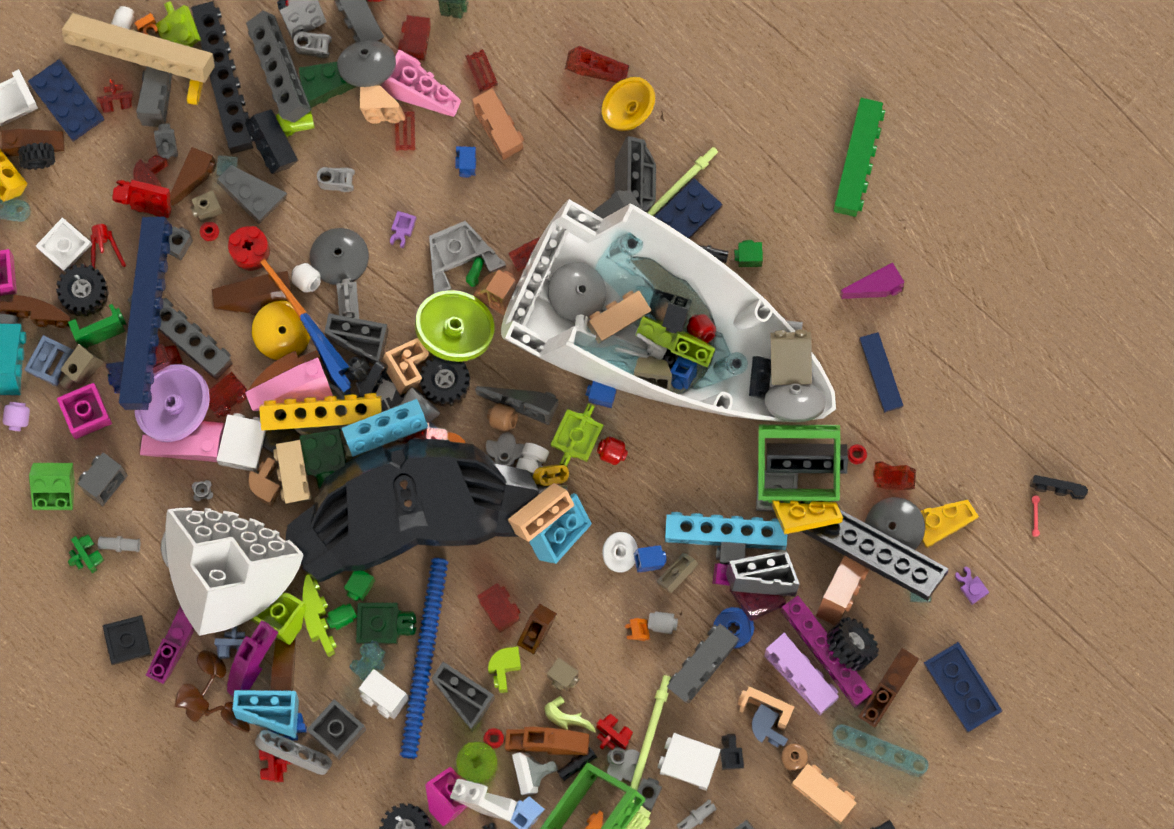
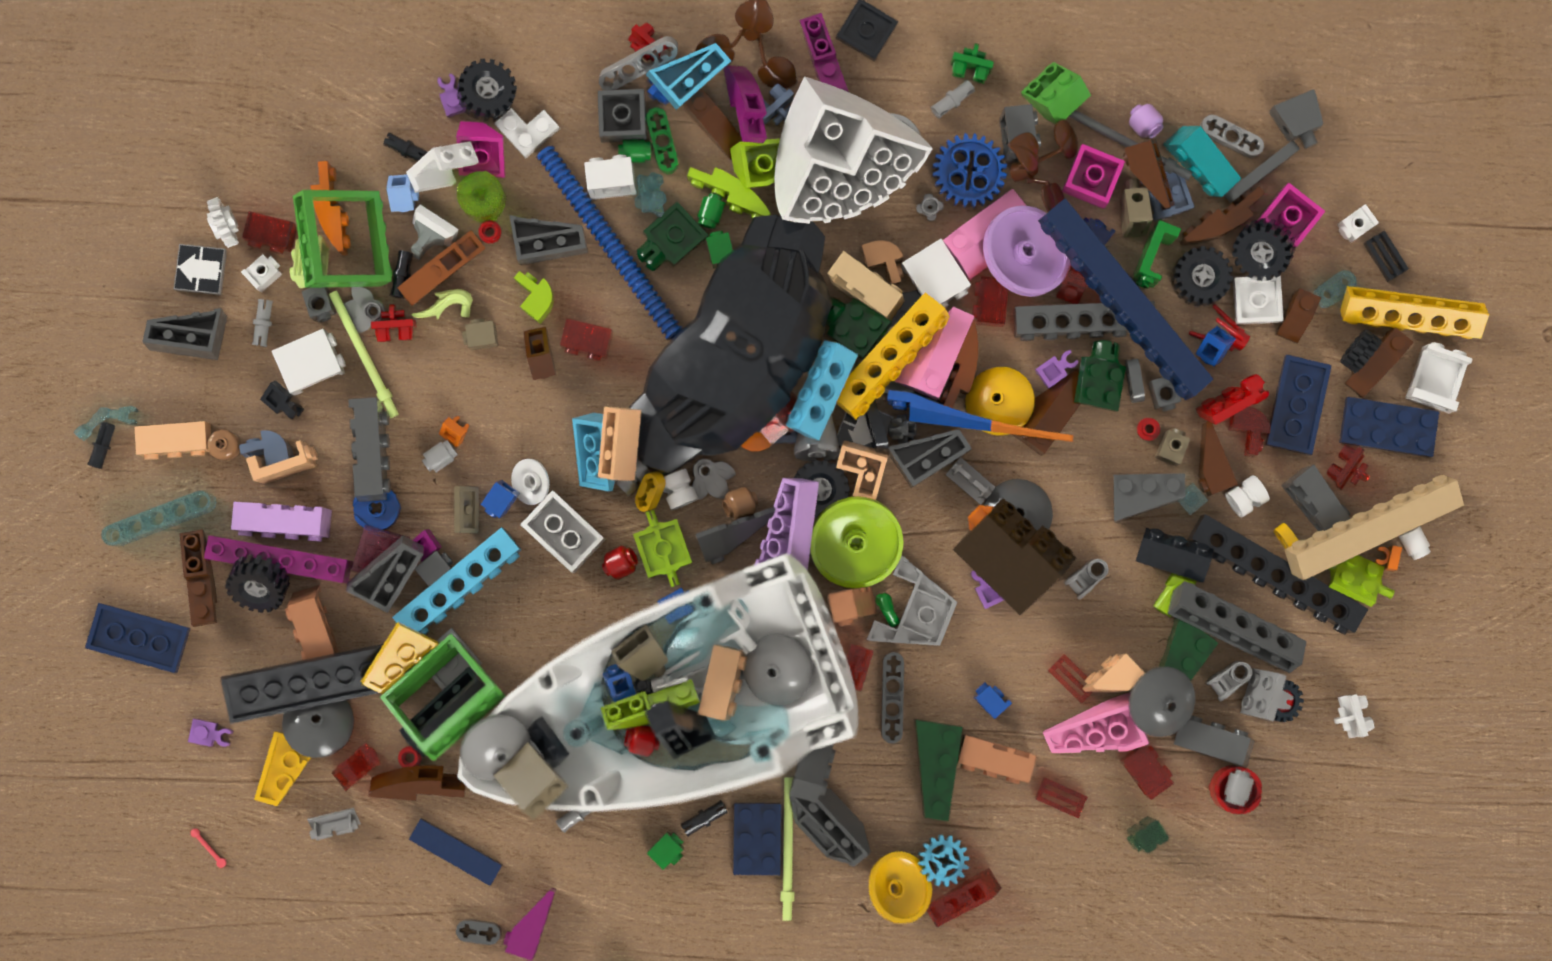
camera: 130 degrees right, 10 degrees up
(31, 373) = (1169, 164): none -> dark grey bar
(39, 270) = (1257, 258): none -> black wheel
(47, 380) = (1148, 167): none -> reddish brown slope
(49, 212) = (1298, 315): none -> reddish brown slope
(105, 161) = (1298, 404): none -> dark blue plate
(115, 453) = (1026, 150): none -> reddish brown plant
(118, 240) = (1215, 346): none -> blue brick
(144, 474) = (950, 167): none -> blue gear
(165, 141) = (1264, 467): dark grey hips -> none
(187, 267) = (1134, 380): none -> dark grey beam
(191, 136) = (1248, 495): none -> white wheel
(205, 287) = (1101, 377): none -> dark green plate
(229, 319) = (1053, 370): none -> medium lavender plate
(248, 237) = (1111, 439): red brick -> none
(305, 277) = (1025, 465): white head -> none
(339, 683) = (652, 126): none -> green beam
(351, 701) = (636, 149): none -> green brick
(367, 226) = (1013, 554): none -> dark brown piece
(409, 778) = (526, 137): none -> white plate
(486, 367) = (792, 522): none -> lavender wedge
(524, 218) = (896, 697): none -> dark grey beam
(536, 153) = (937, 764): none -> dark green wedge
(593, 91) = (941, 870): none -> medium azure gear
(629, 500) = (563, 532): none -> white brick
(867, 435) = (414, 780): none -> reddish brown slope
(914, 309) = (479, 926): none -> dark grey beam
(933, 452) = (341, 822): none -> light grey hinge
(1059, 487) = (207, 892): black hinge -> none

